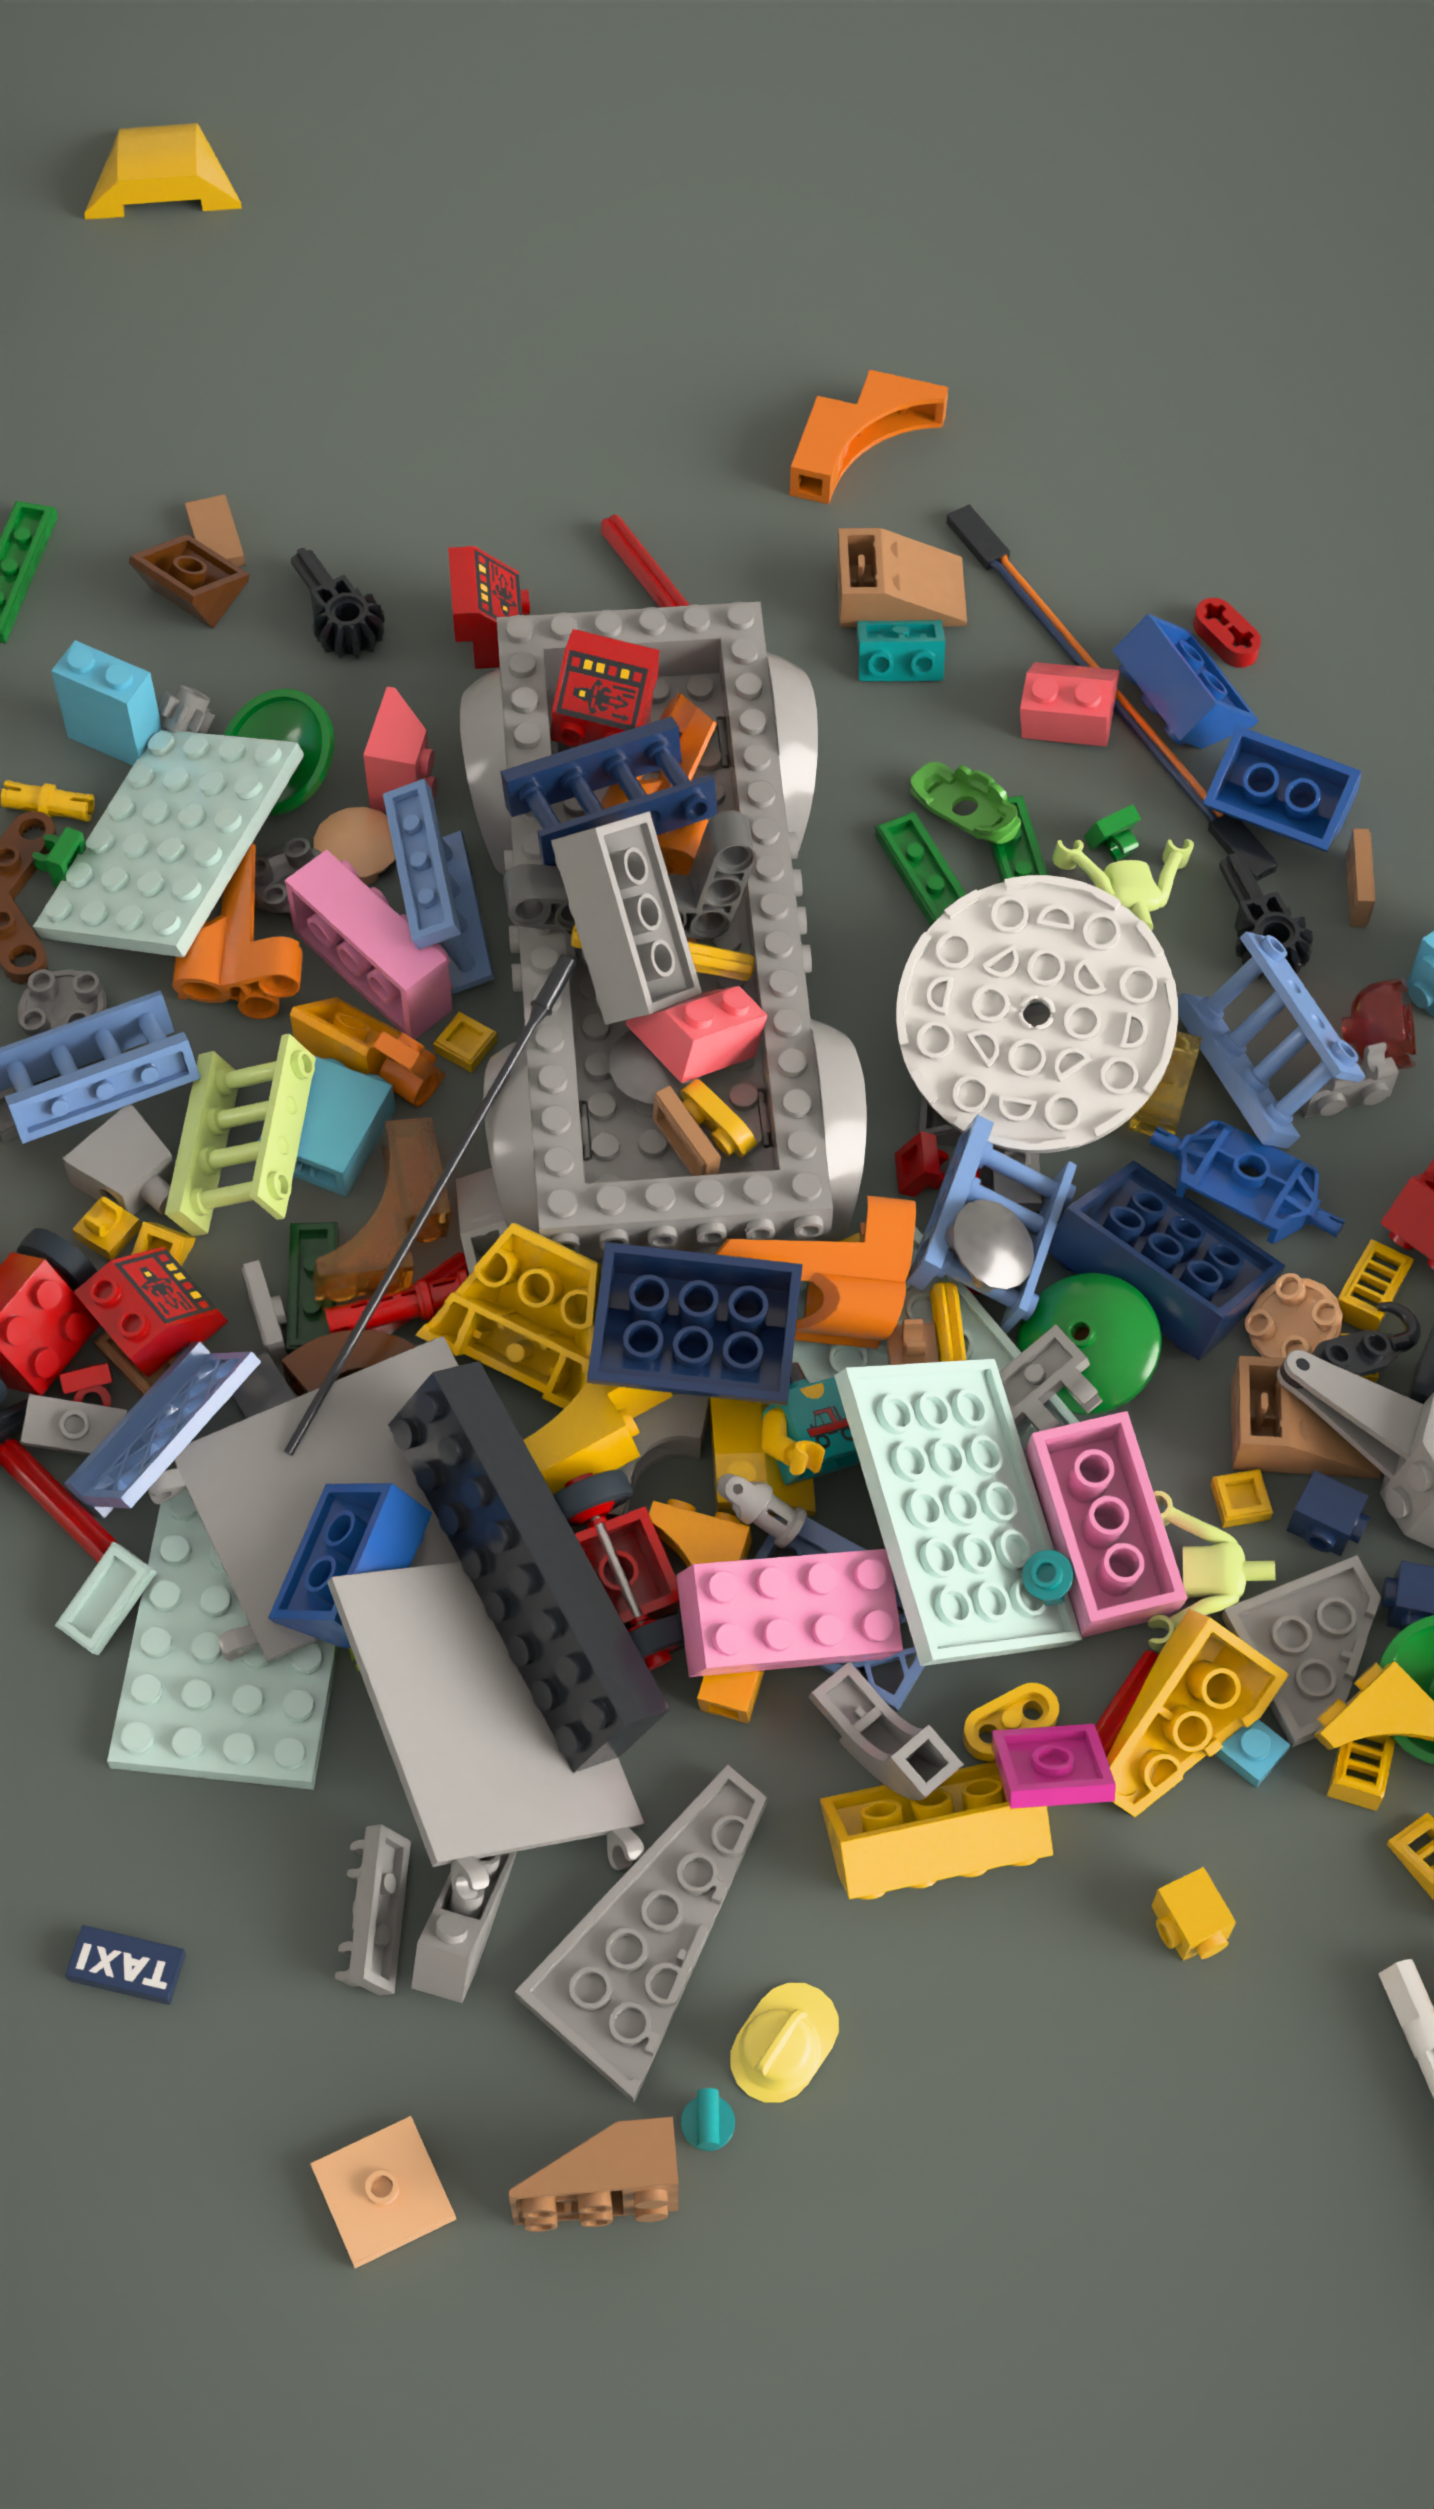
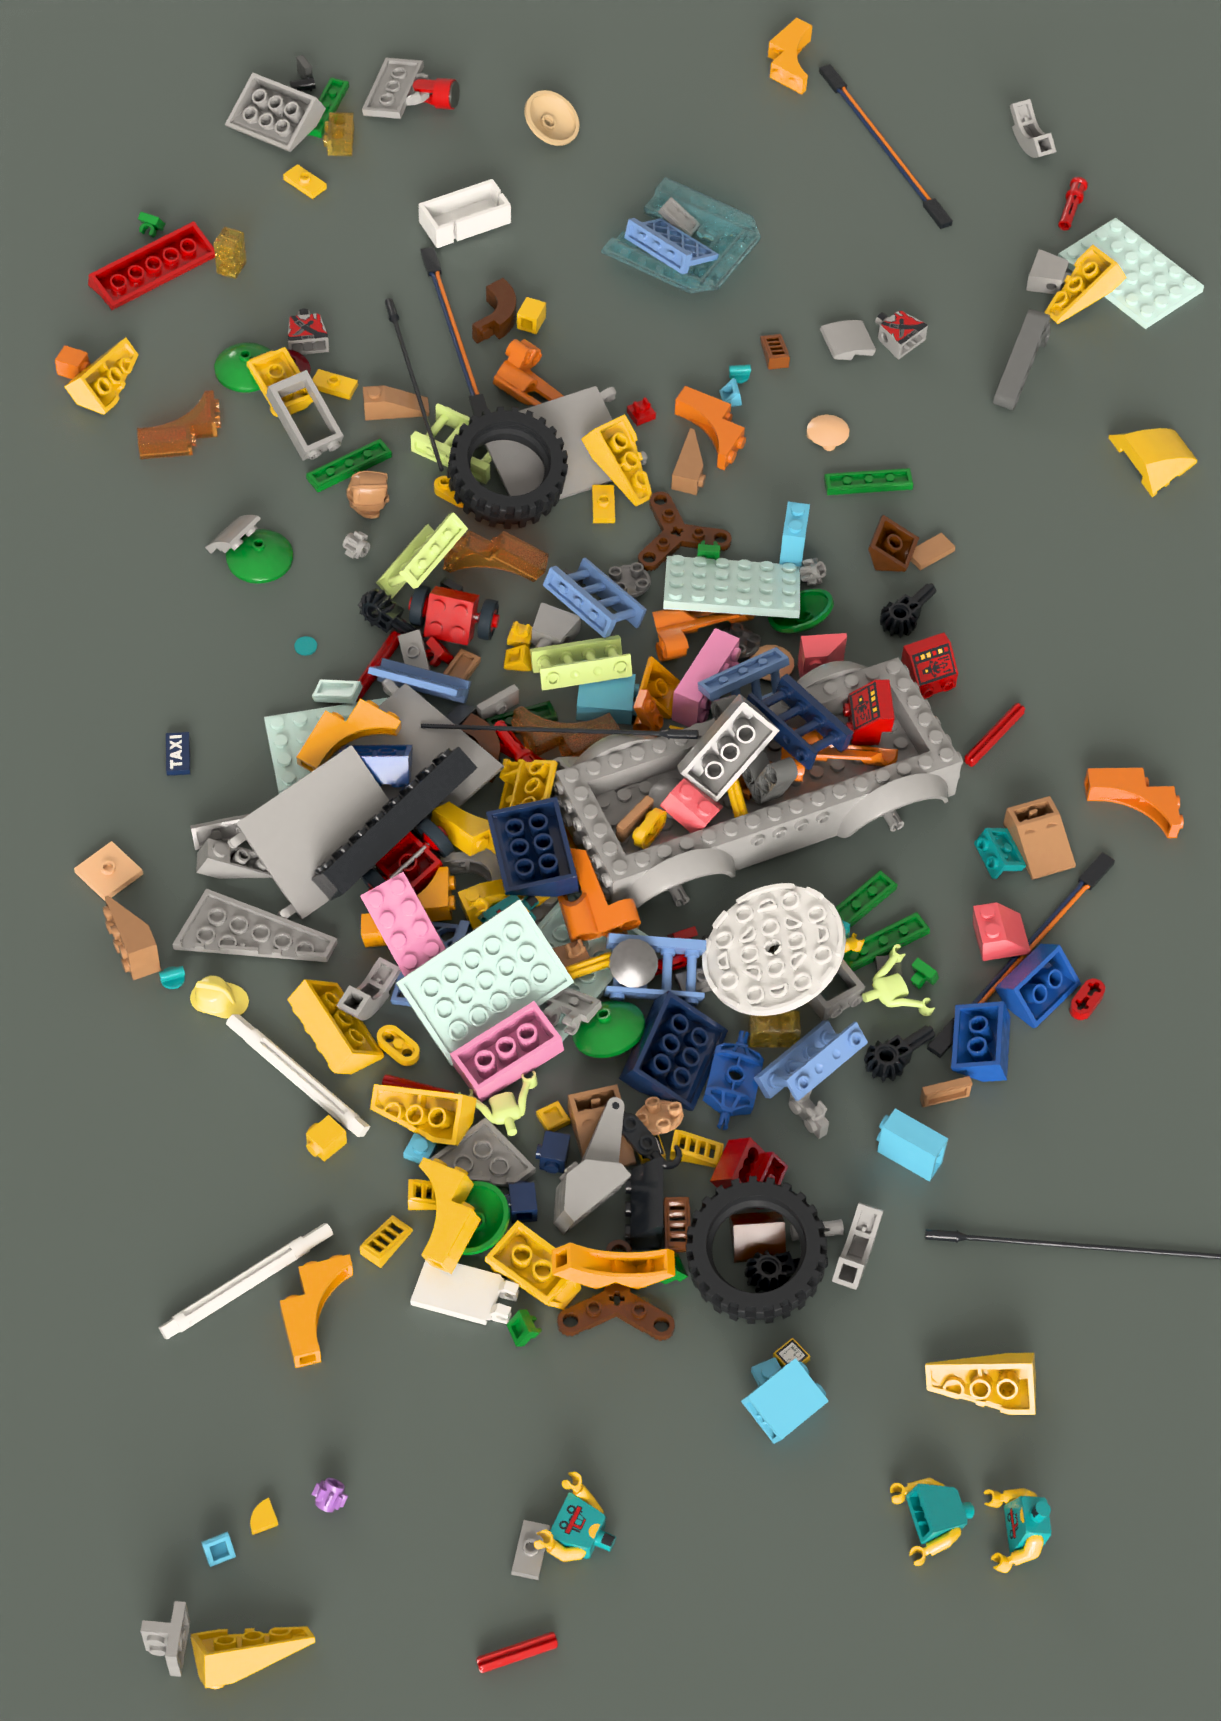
camera: 70 degrees right, 5 degrees down
(47, 800) = (740, 538): yellow pin -> none
(150, 1307) = (478, 657): red piece -> none
(246, 1614) = (334, 732): none -> light orange arch
(751, 1503) = (457, 903): light grey piece -> none
(942, 788) = (916, 891): bright green piece -> none
(1021, 1932) = (298, 1075): none -> white piece
(1048, 1576) = (467, 1031): teal plate -> none
(1053, 1766) = (372, 1055): dark pink tile -> none
(1381, 1017) = (852, 1120): clear red cylinder -> none

